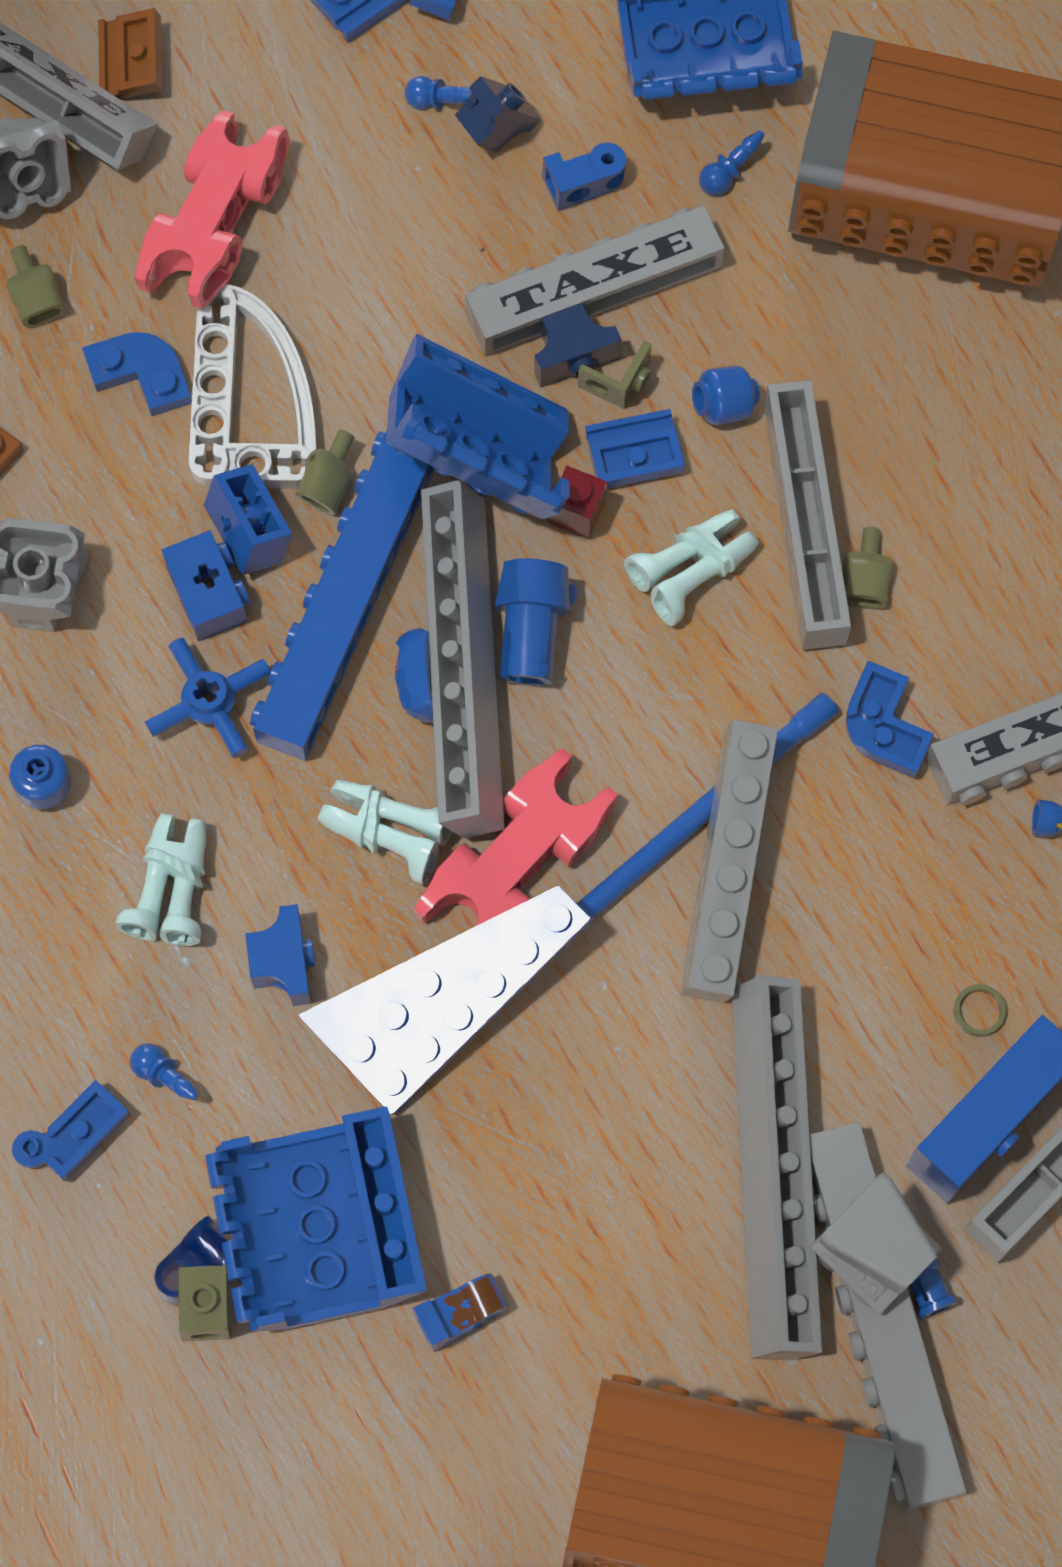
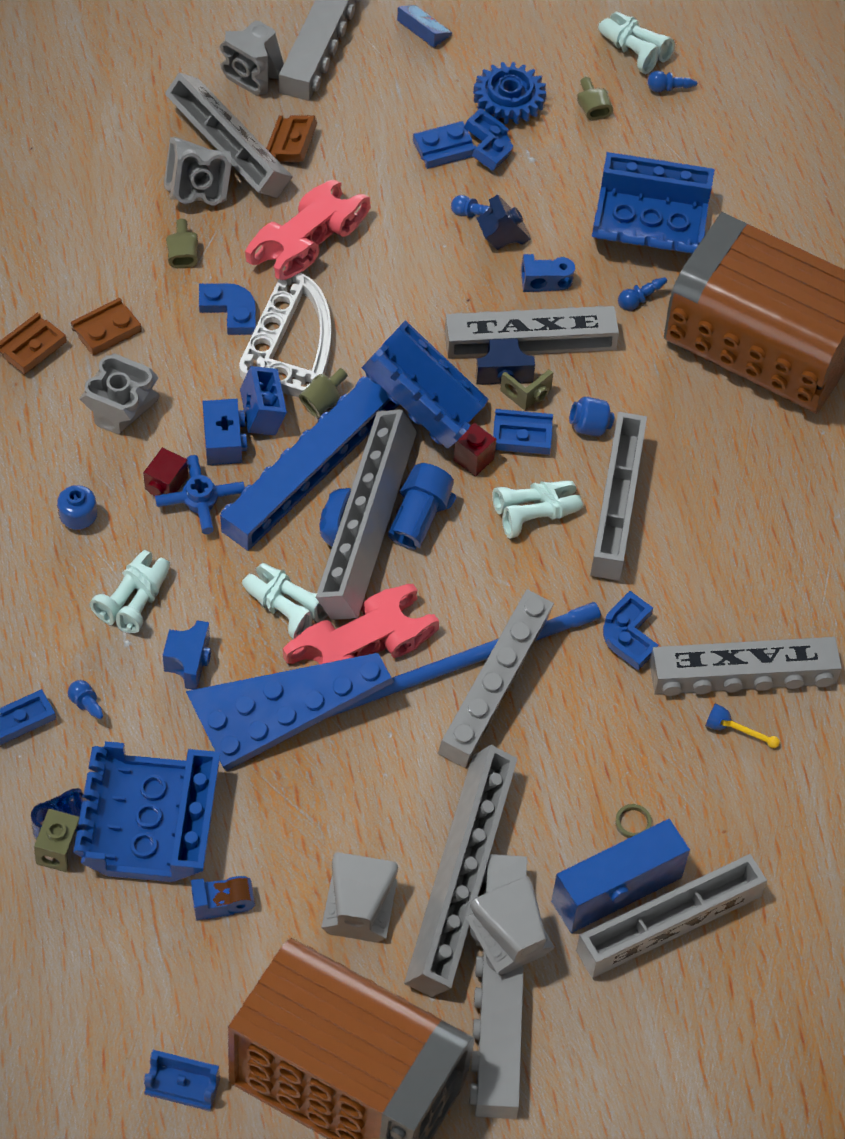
camera: 15 degrees right, 15 degrees down
(147, 681) = (165, 473): none -> dark red brick
(650, 1254) = (360, 897): none -> light grey piece
(867, 573) = (647, 544): olive piece -> none
(931, 1292) = (539, 979): blue bush -> none

